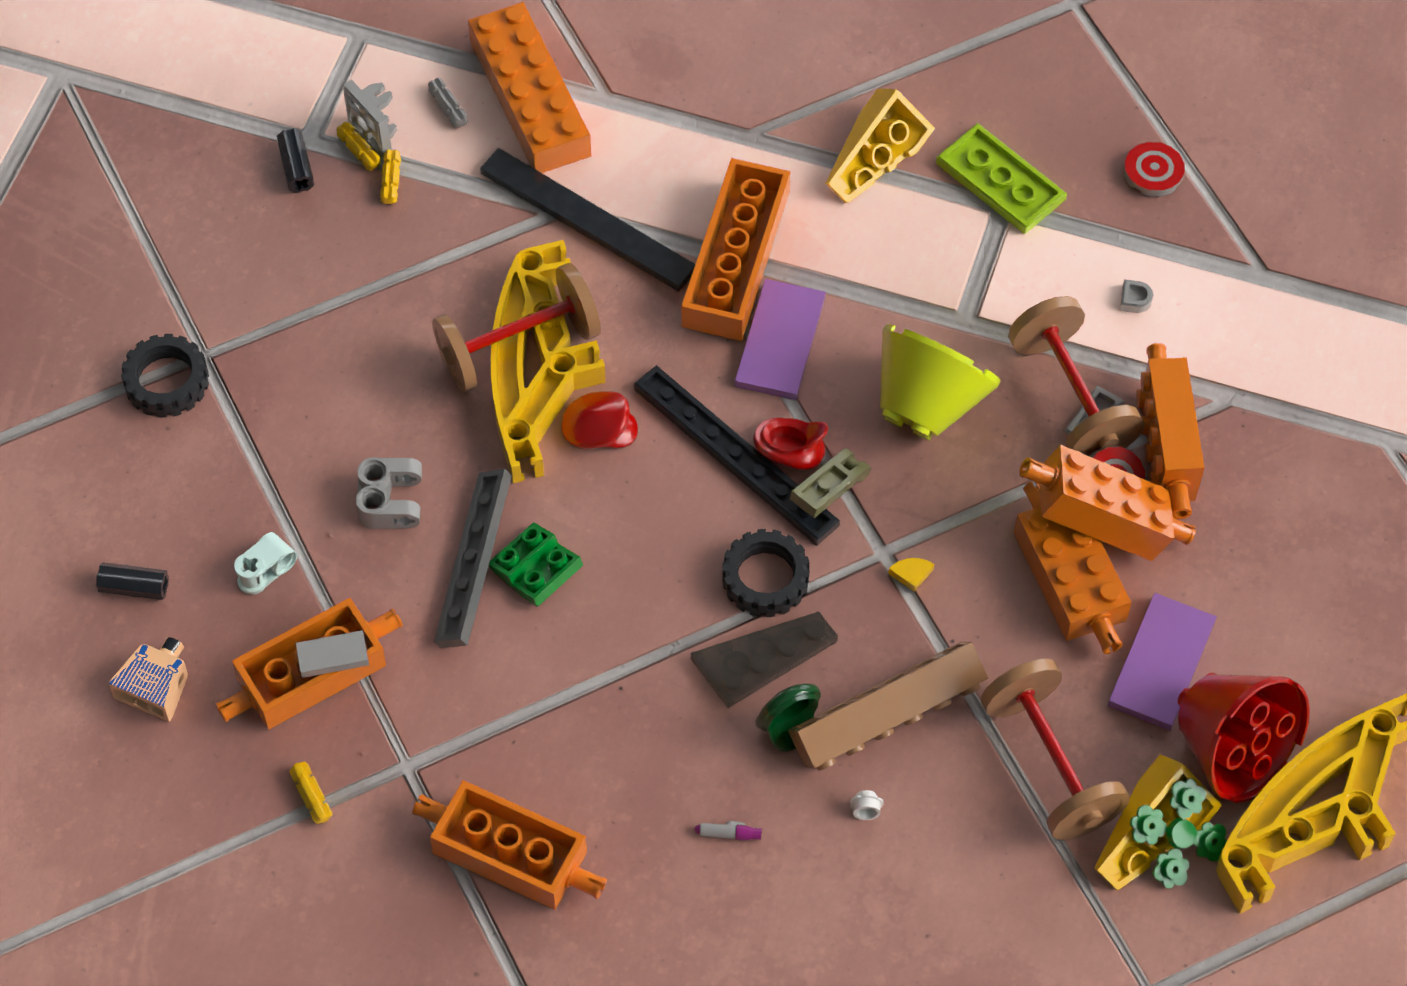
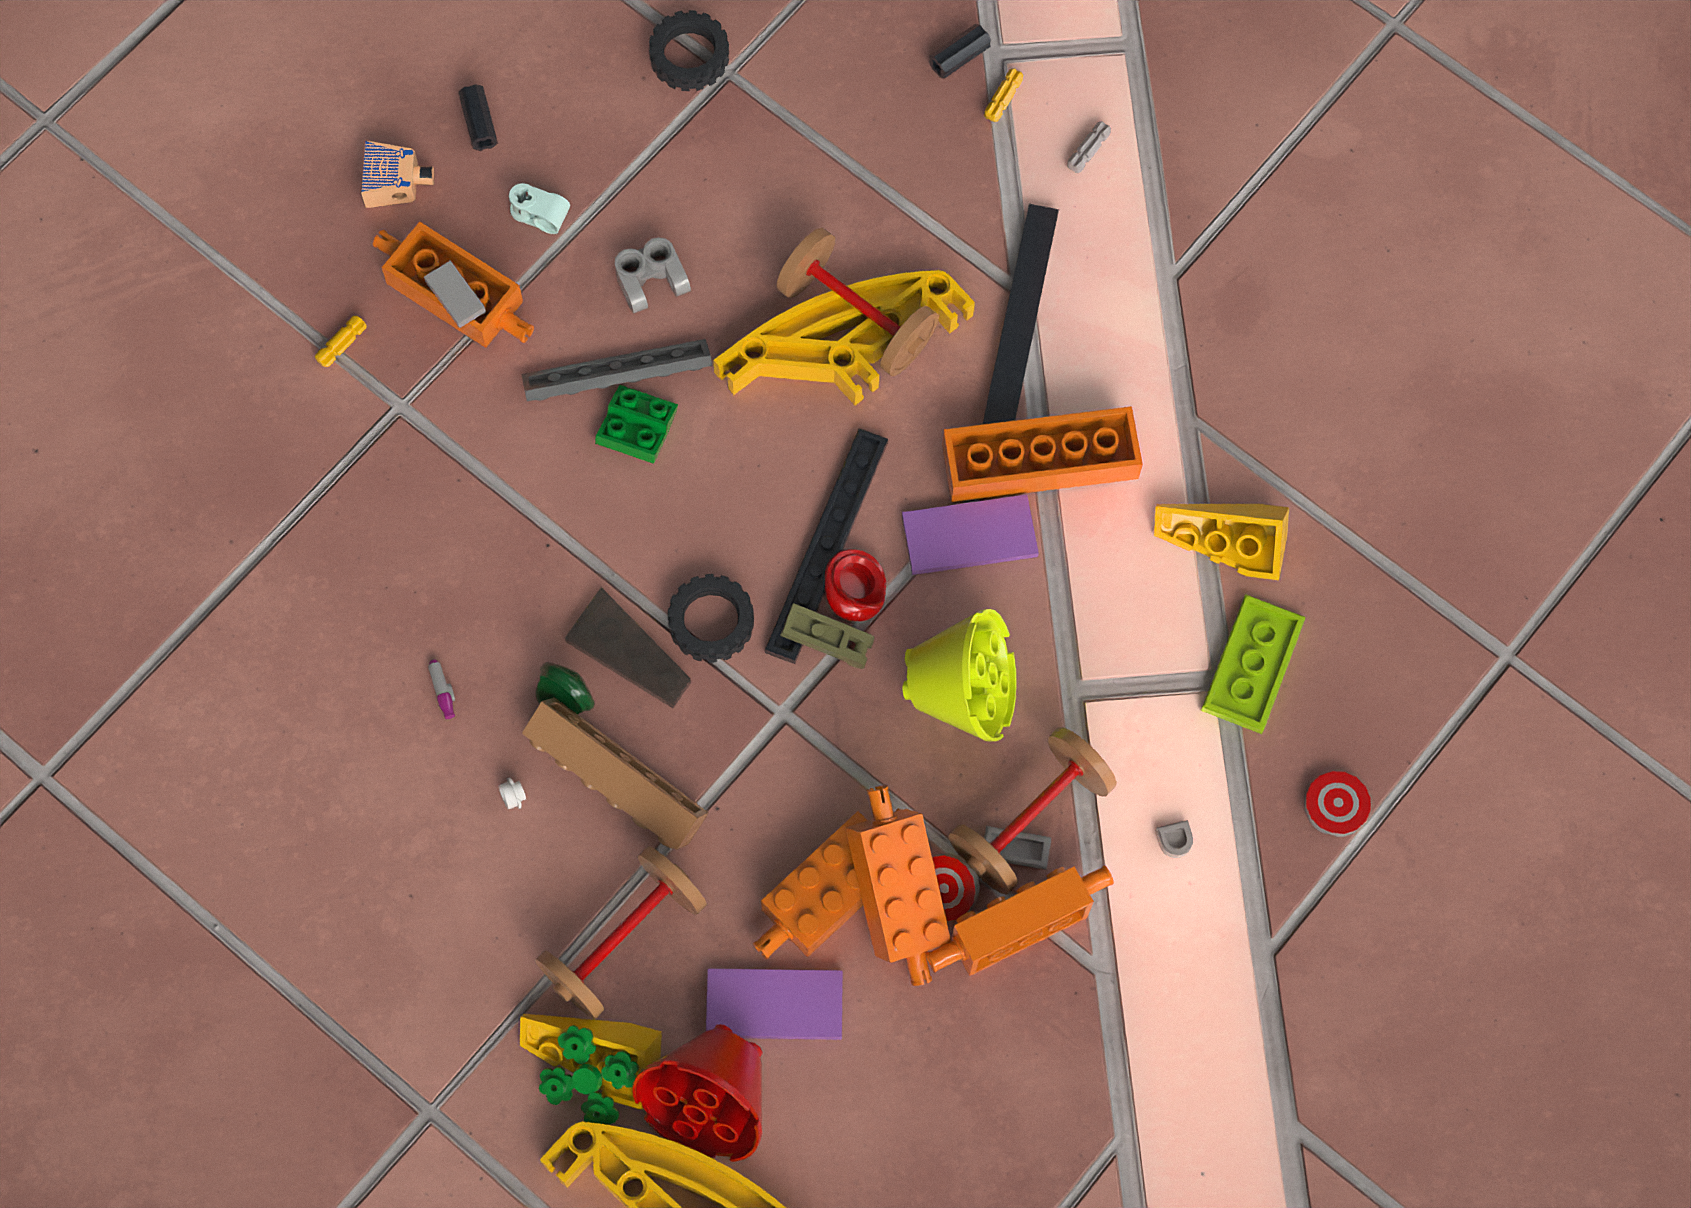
camera: 65 degrees right, 10 degrees up
(366, 115) = (1027, 89): light grey piece -> none
(390, 176) = (983, 135): yellow axle -> none
(509, 845) = (346, 514): orange brick -> none
(529, 88) = (1135, 206): orange brick -> none
(599, 421) = (804, 417): red piece -> none
(911, 571) = (770, 744): yellow tile -> none

